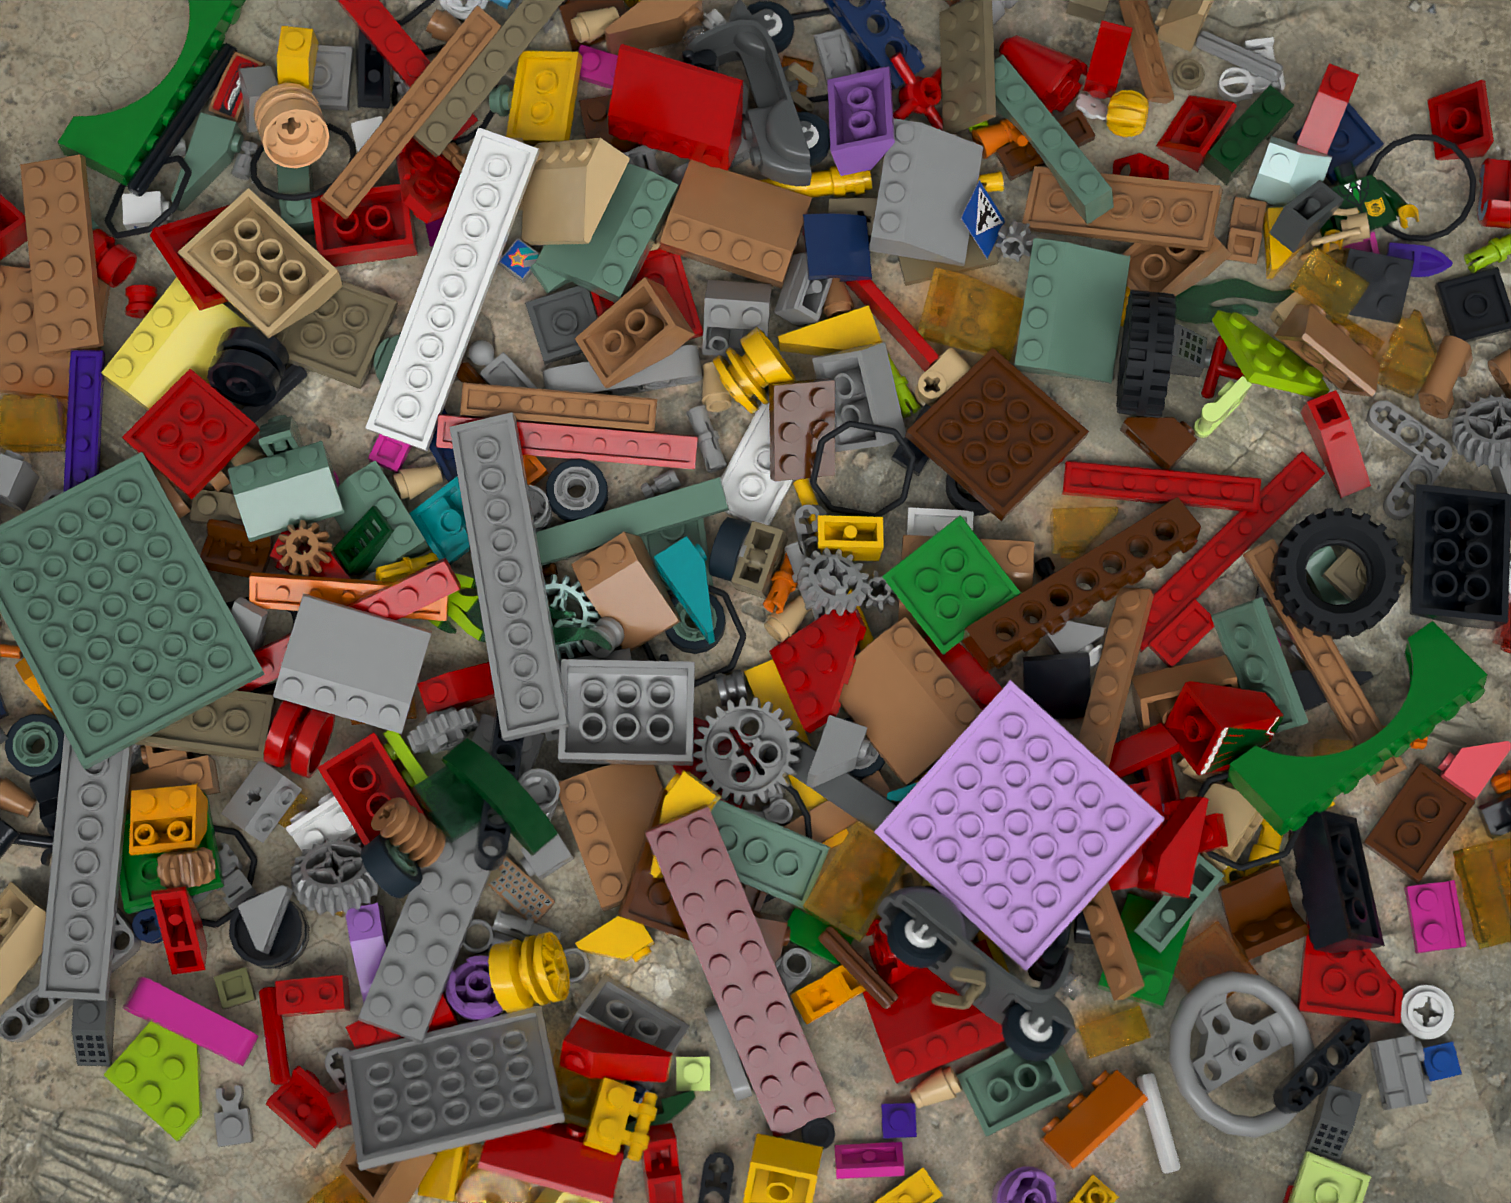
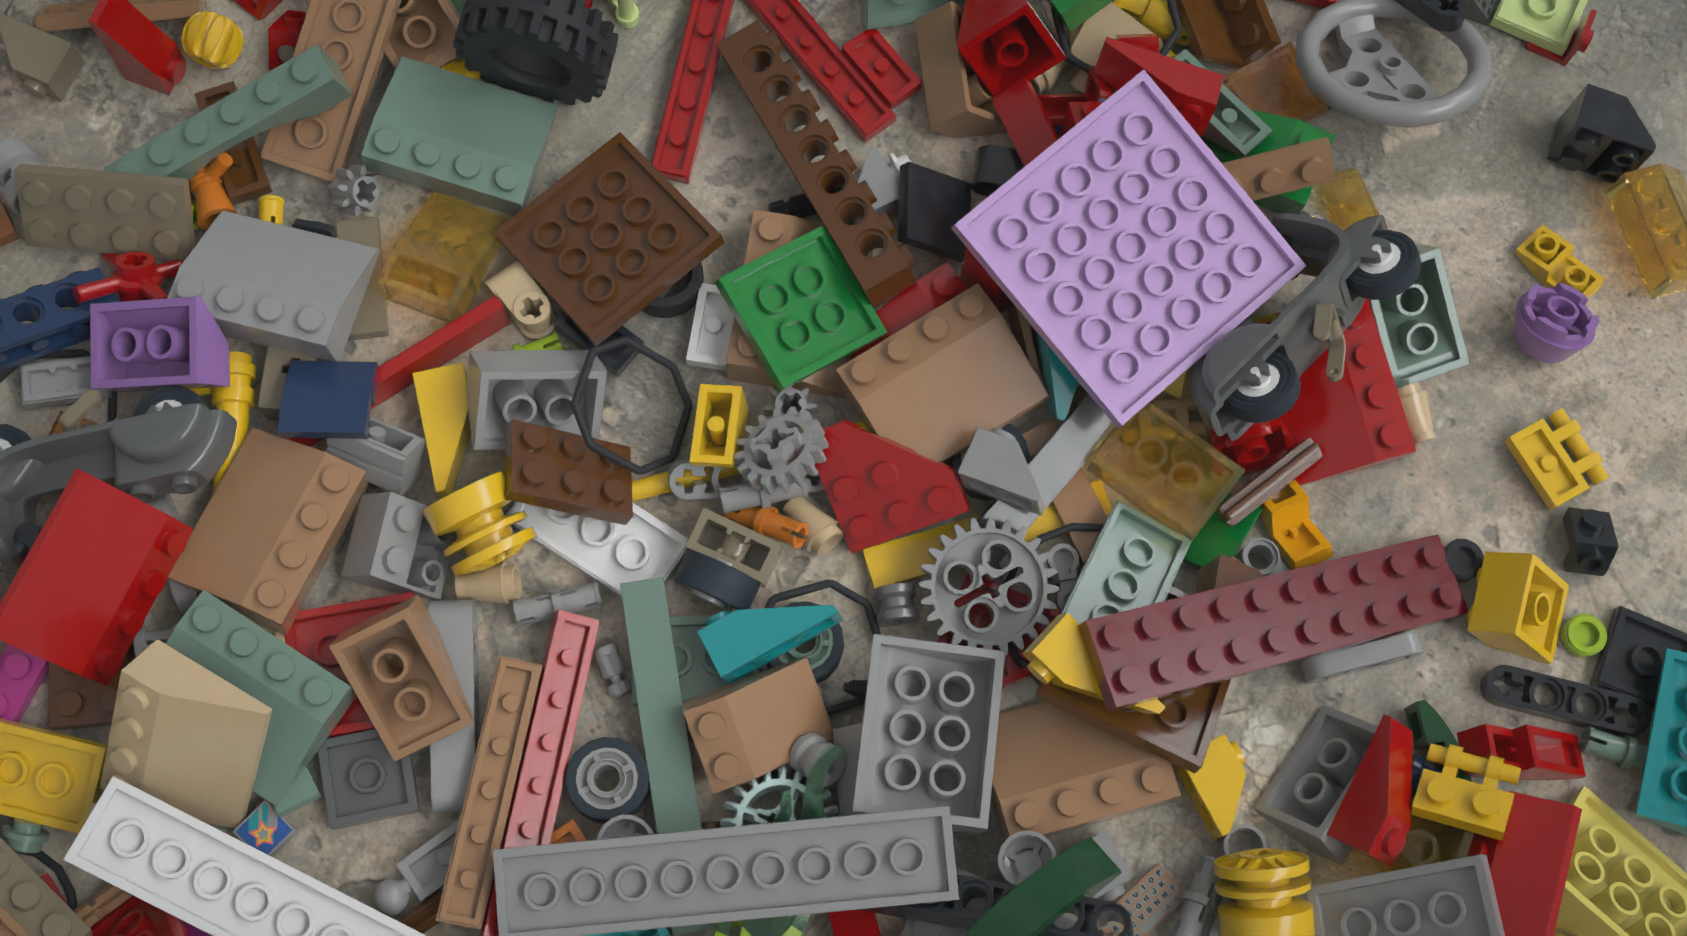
camera: 95 degrees left, 5 degrees down
(692, 1074) = (1387, 700): yellowish green plate -> none
(837, 300) = (401, 413): medium nougat cone -> none
(869, 1160) = (1499, 500): dark pink plate -> none
(898, 1120) = (1447, 462): dark purple plate -> none
(982, 219) = (321, 221): blue sticker -> none
(1045, 70) = (130, 122): red cone -> none
(1078, 528) = (739, 166): clear yellow slope -> none
(1092, 107) = (194, 83): white plant -> none
(1092, 1118) = (1473, 235): orange slope -> none
(1115, 672) = (927, 138): medium nougat plate -> none
(1158, 1124) = (1456, 172): white axle -> none
(1160, 438) = (640, 59): reddish brown slope -> none

